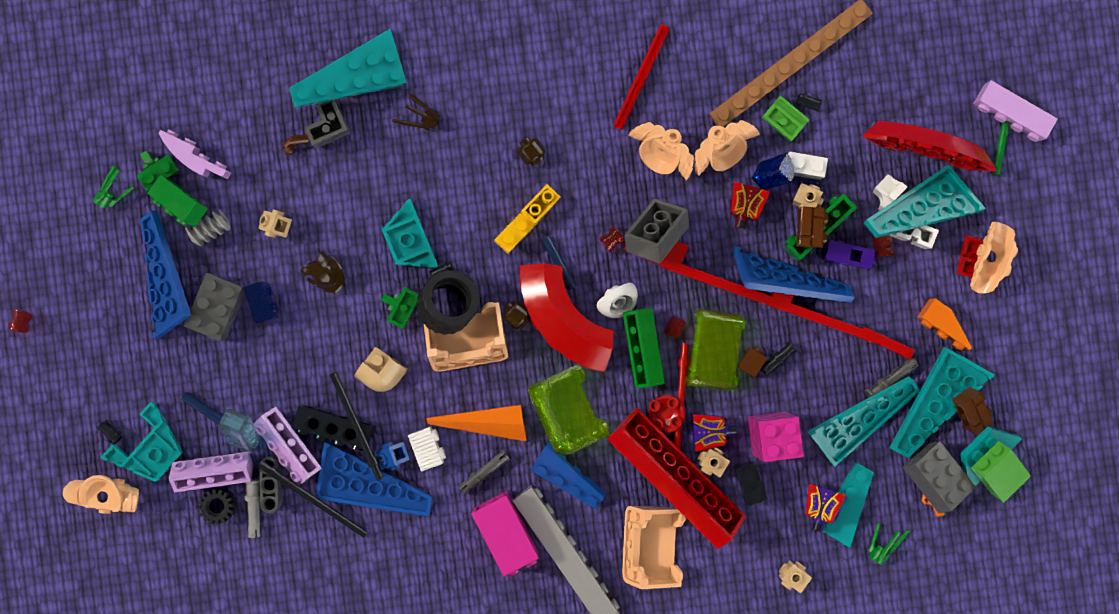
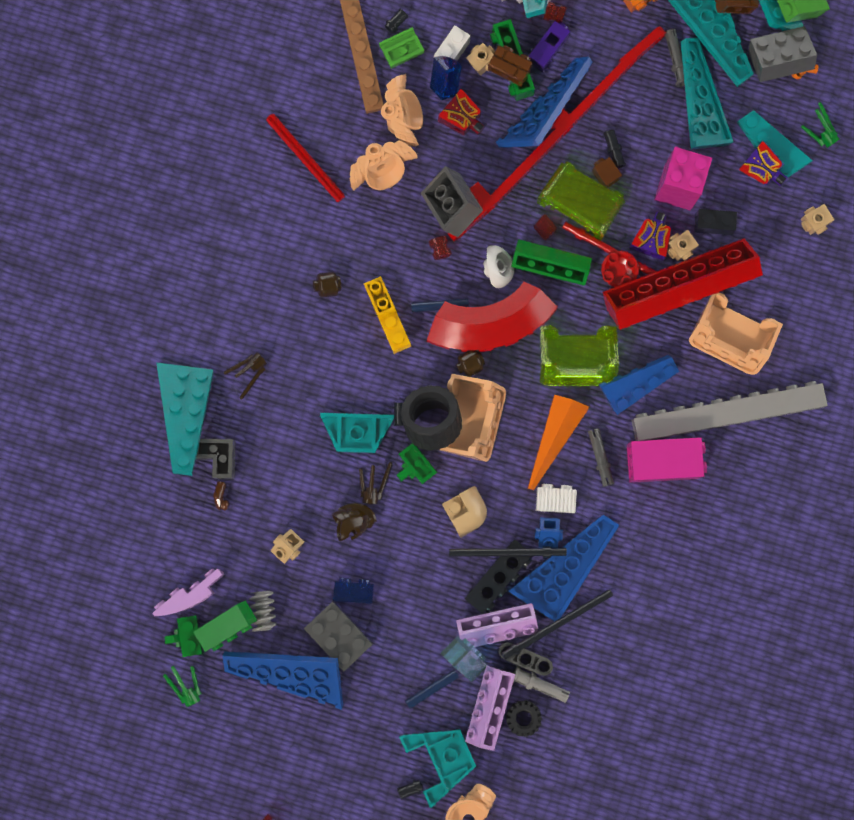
camera: 65 degrees left, 5 degrees down
(357, 277) = (370, 495): none -> dark brown plant

